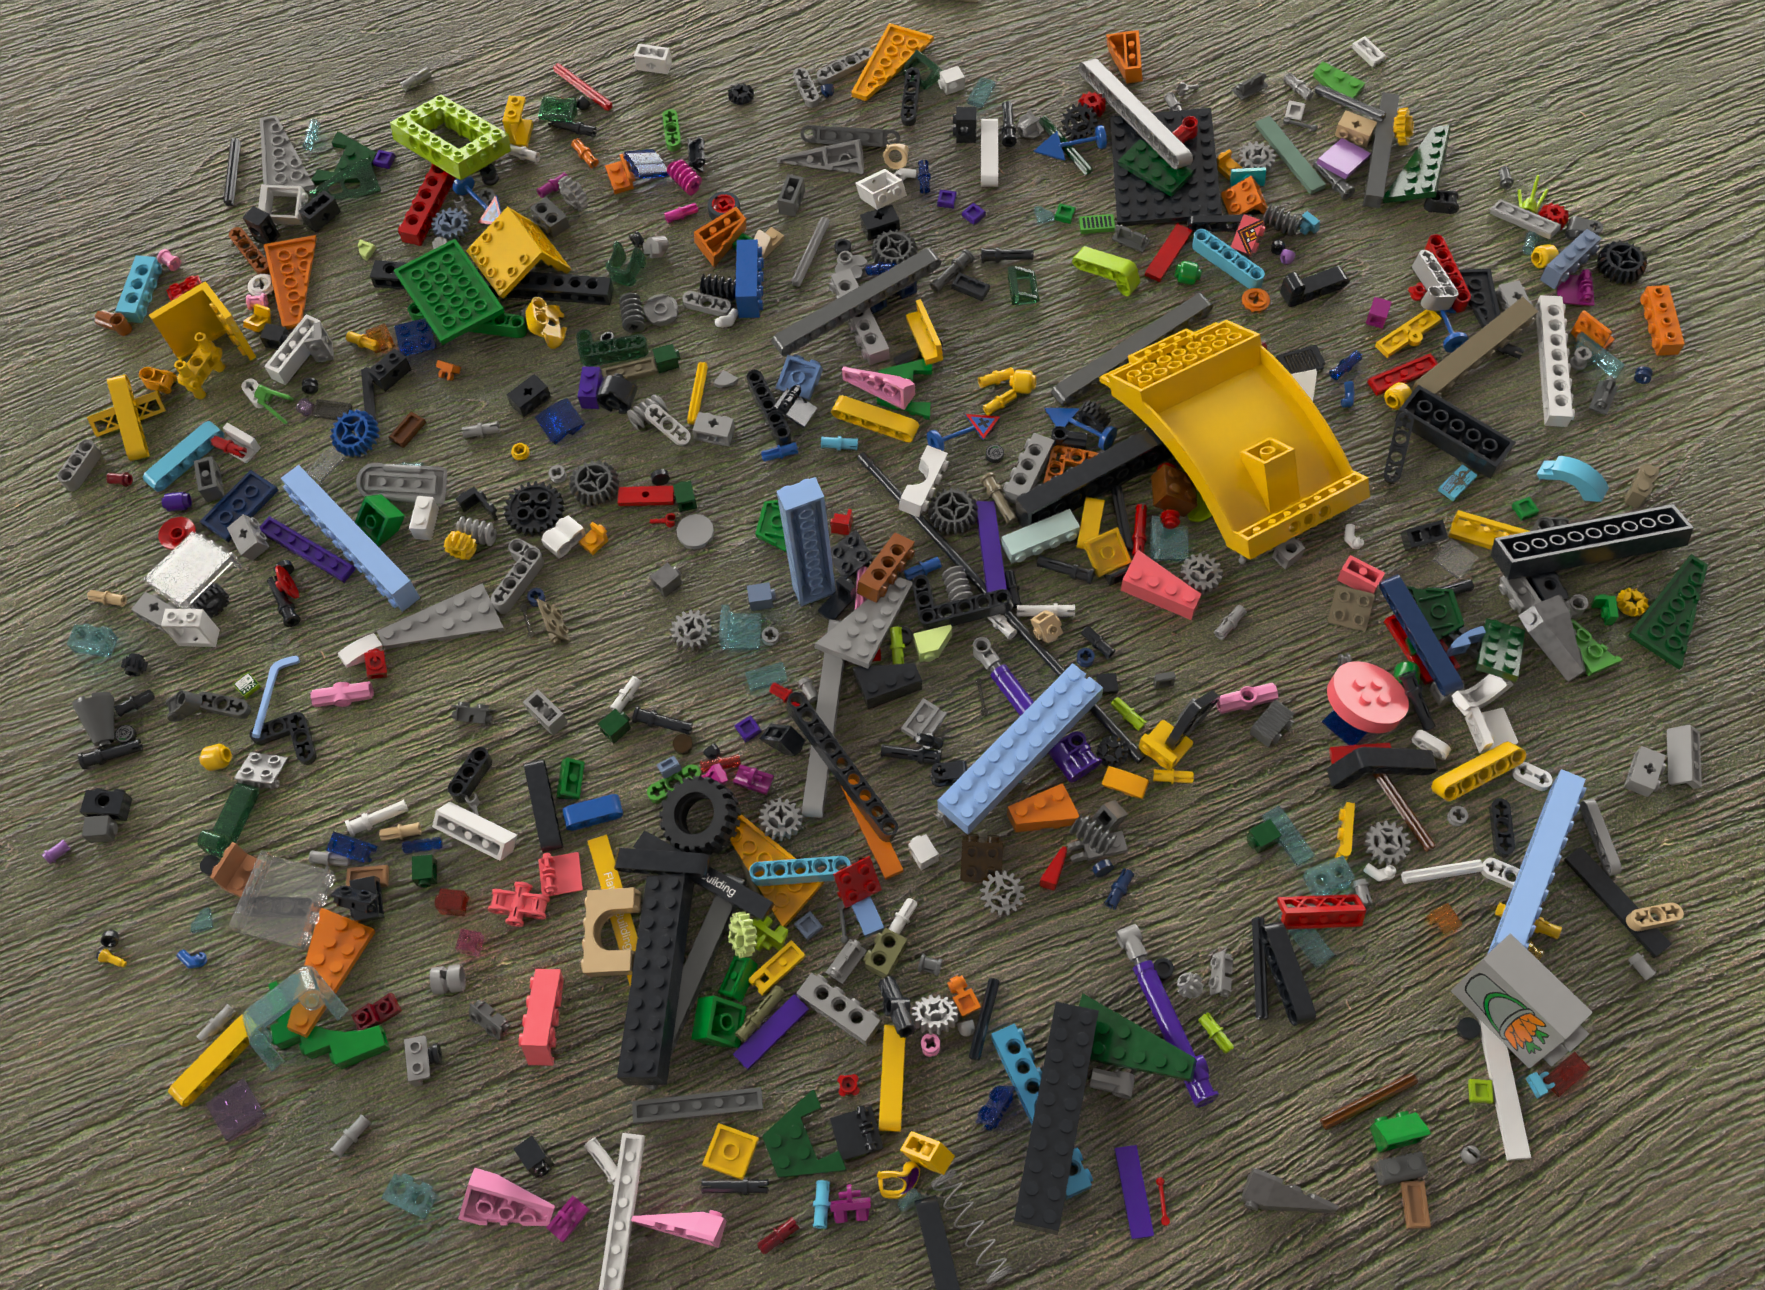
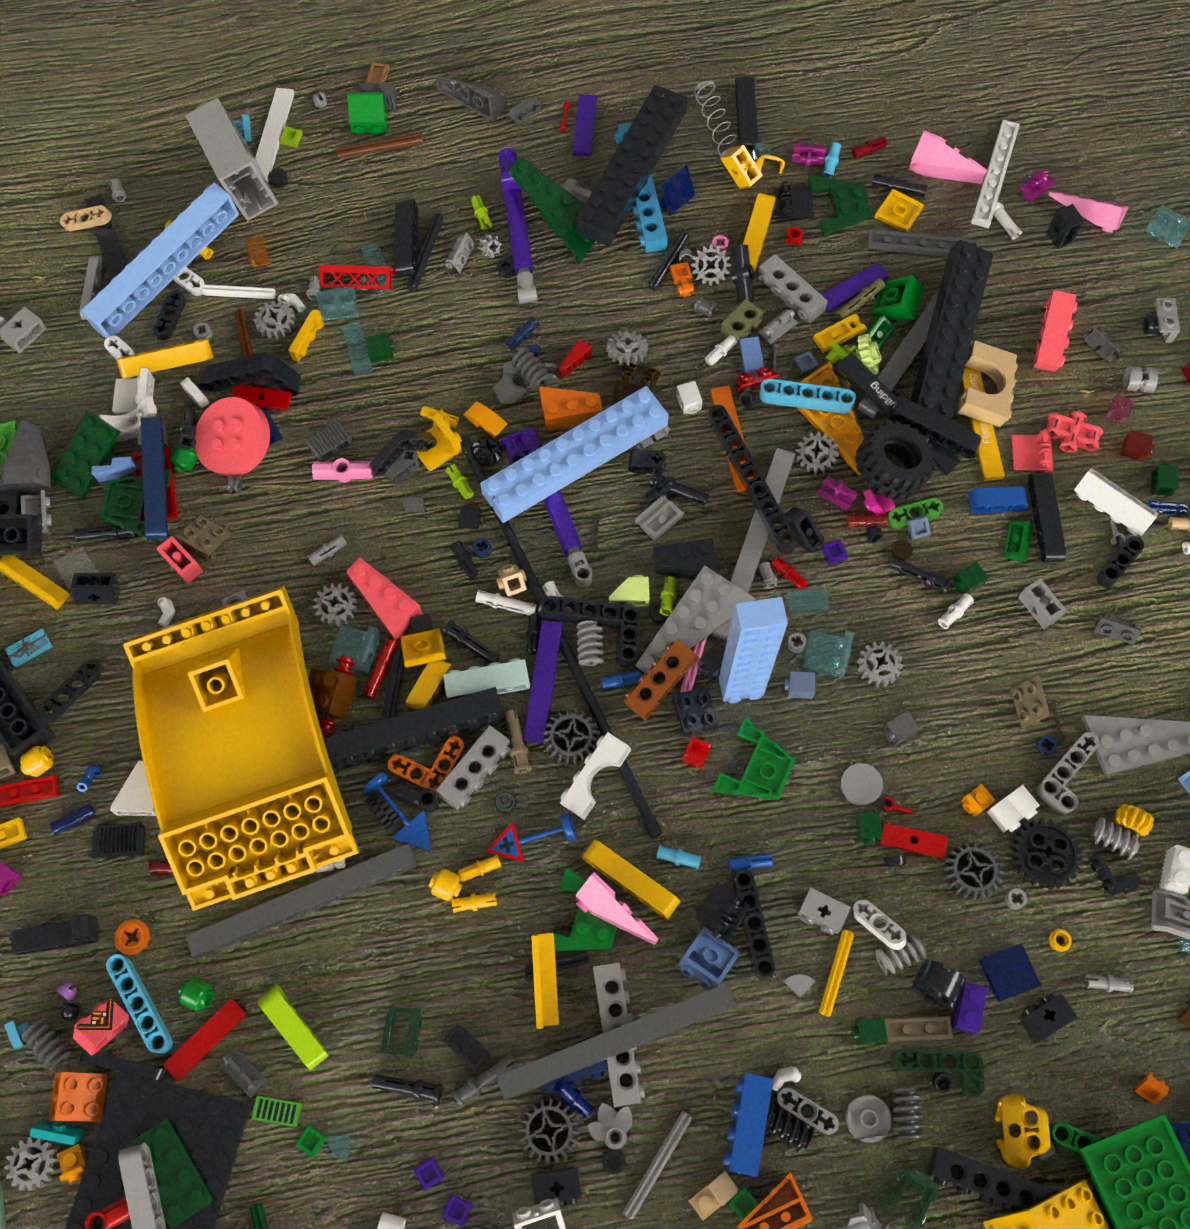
camera: 170 degrees left, 5 degrees up
(1213, 1193) = (525, 109): none -> dark grey beam

